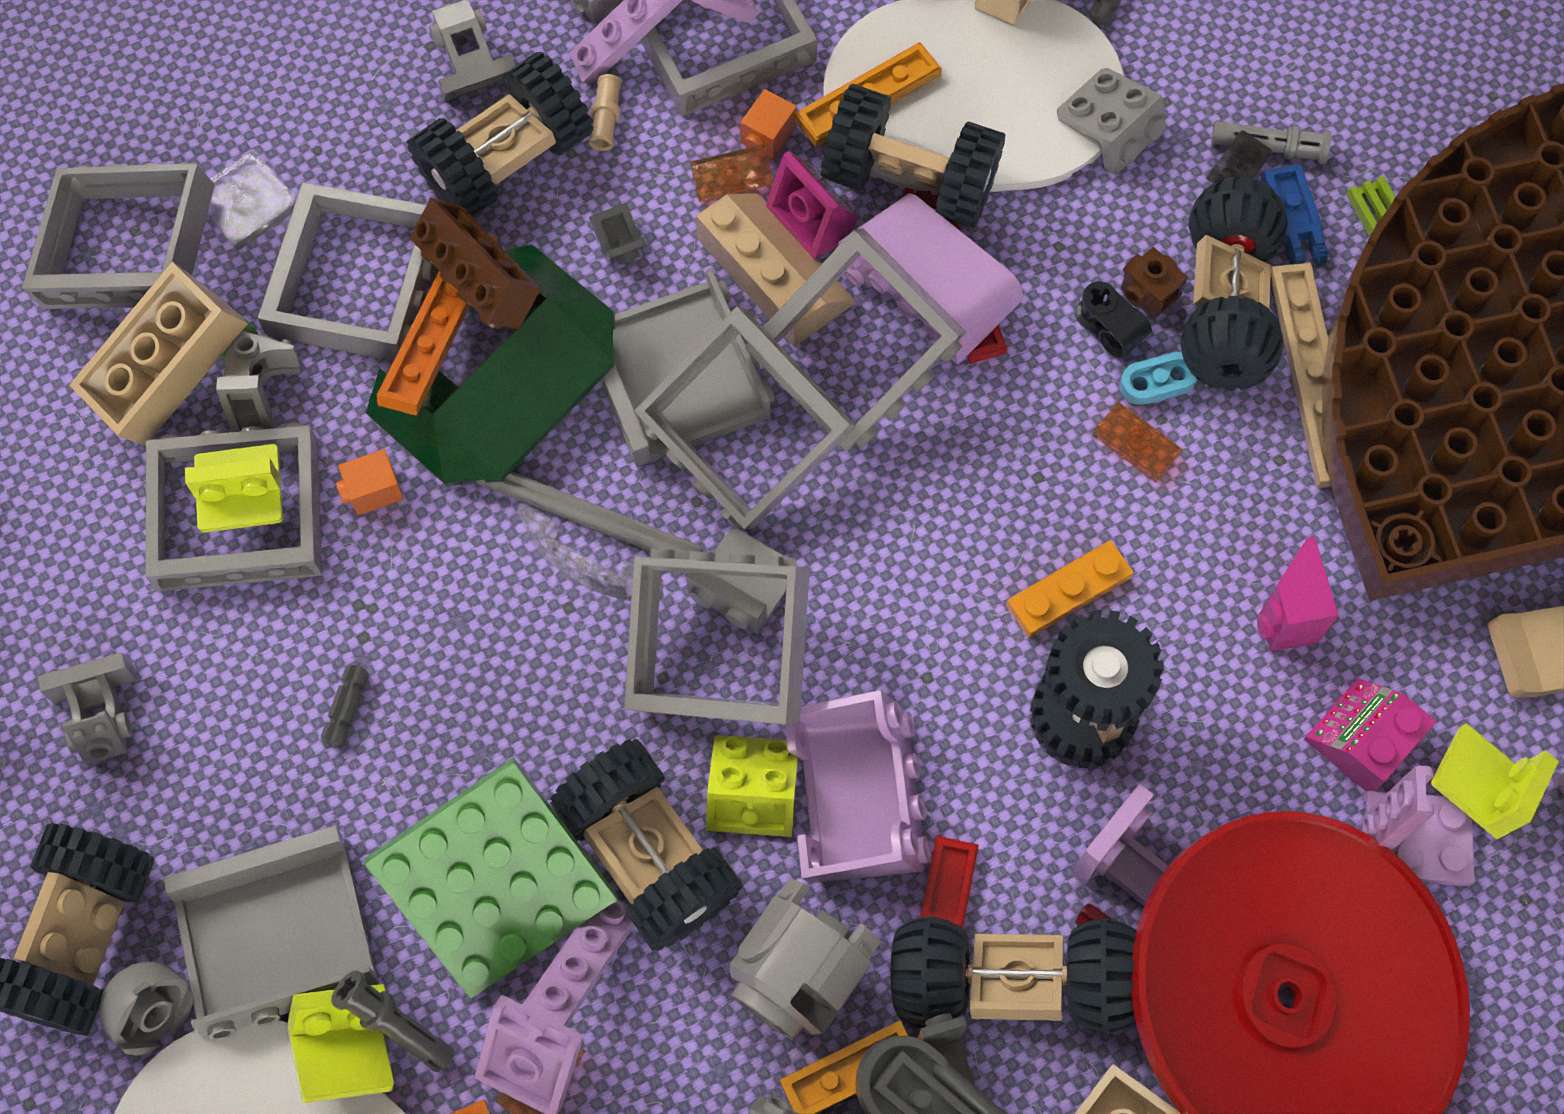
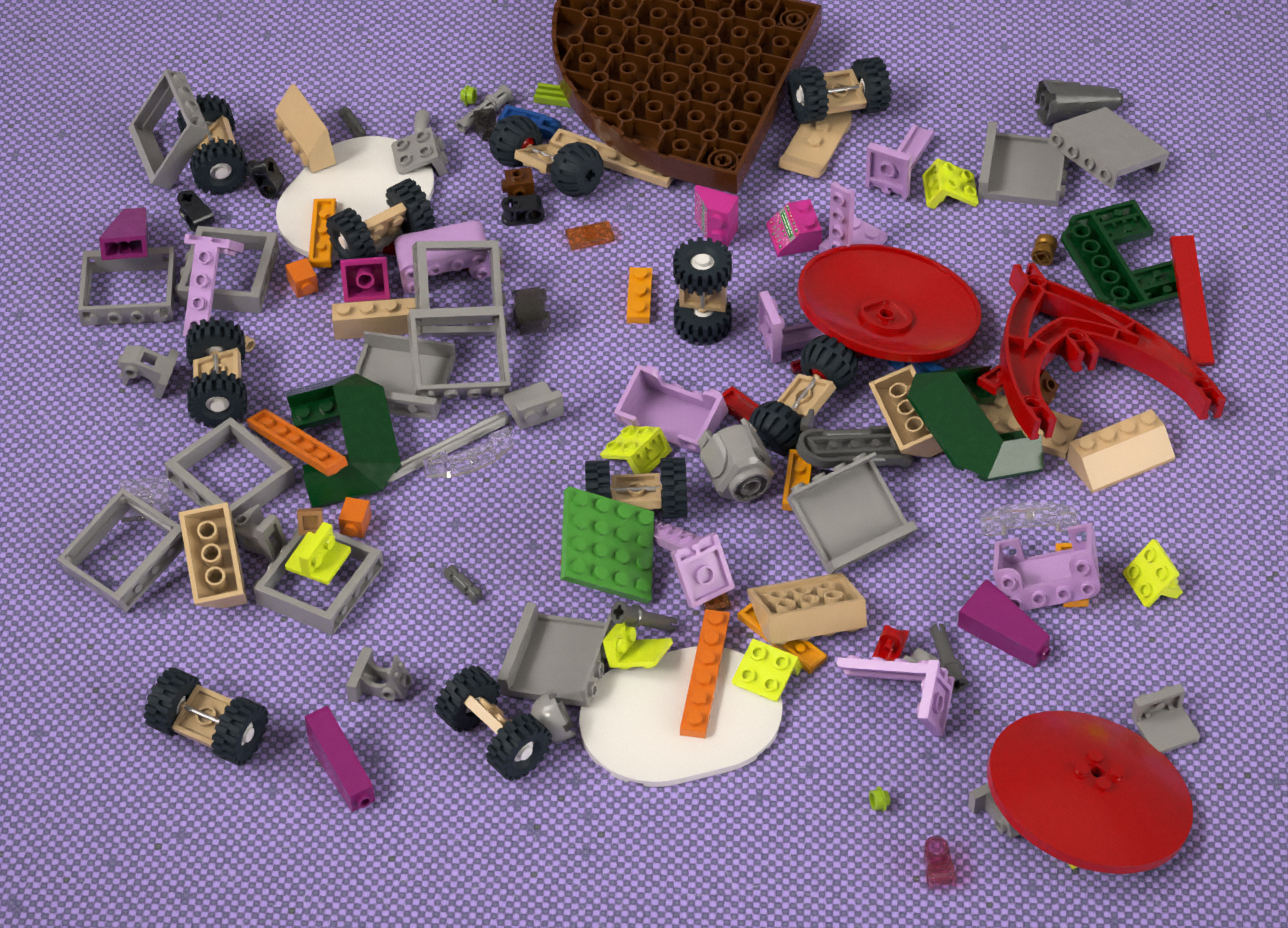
camera: 55 degrees left, 20 degrees down
(293, 434) = (309, 520): none -> medium nougat tile
(474, 264) = (287, 403): reddish brown brick -> none
(617, 234) = (308, 363): dark grey bracket -> none
(644, 629) = (537, 377): light grey window -> none
(731, 172) = (315, 304): clear orange plate -> none
(906, 461) = (530, 311): none -> clear smoke brick
(1156, 378) = (566, 211): medium azure plate -> none
(1177, 80) = (421, 120): none -> light grey arm
(1283, 103) = (468, 95): none -> lime plate
(1491, 785) = (865, 195): neon yellow bracket -> none

